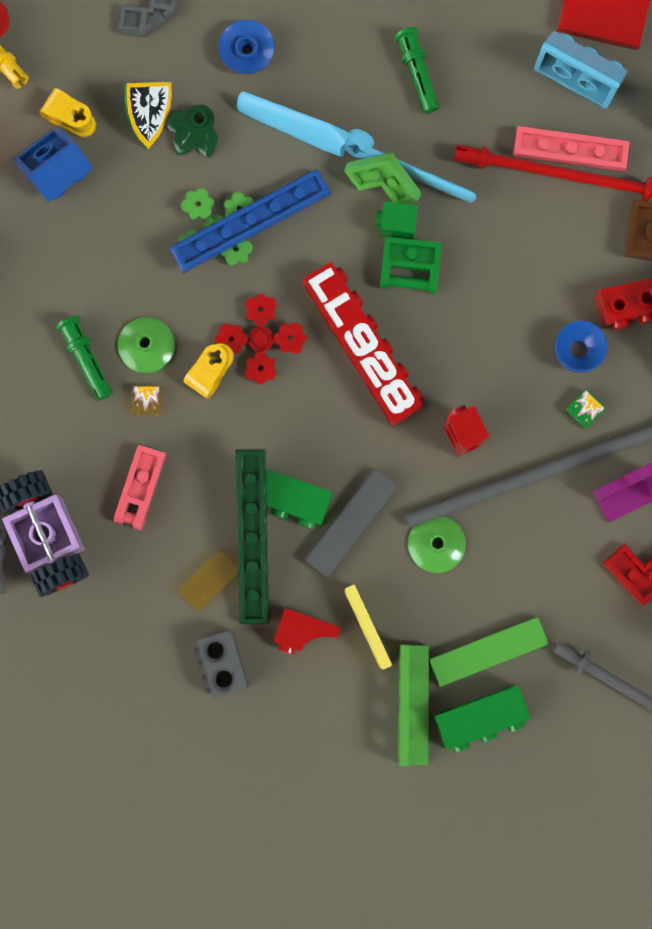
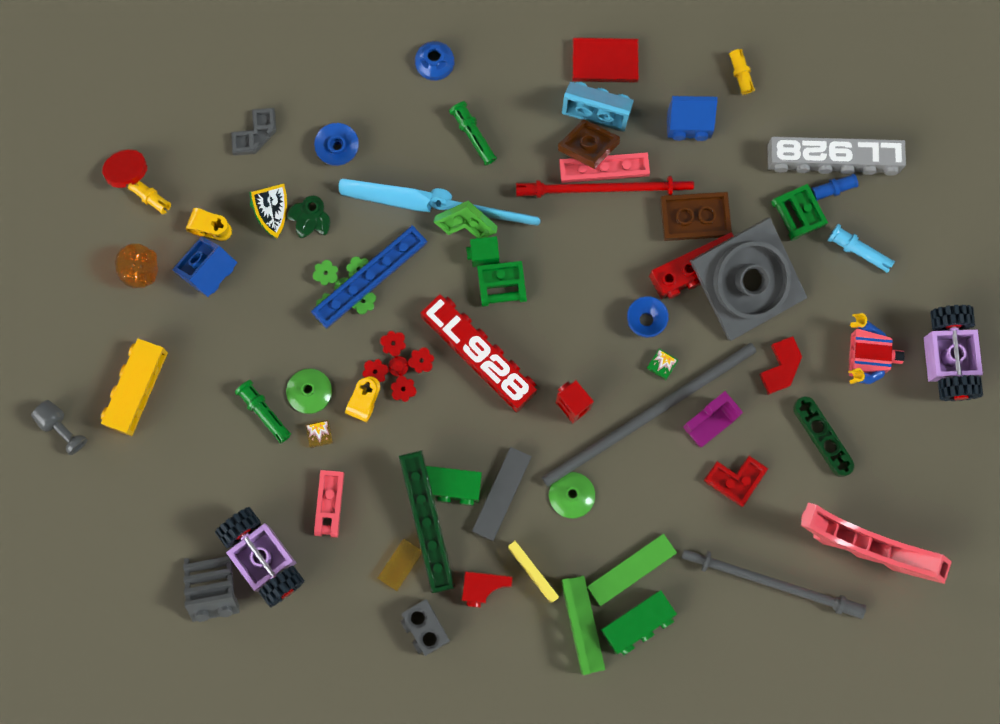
camera: 15 degrees left, 5 degrees down
(558, 114) = (589, 143): none -> reddish brown plate

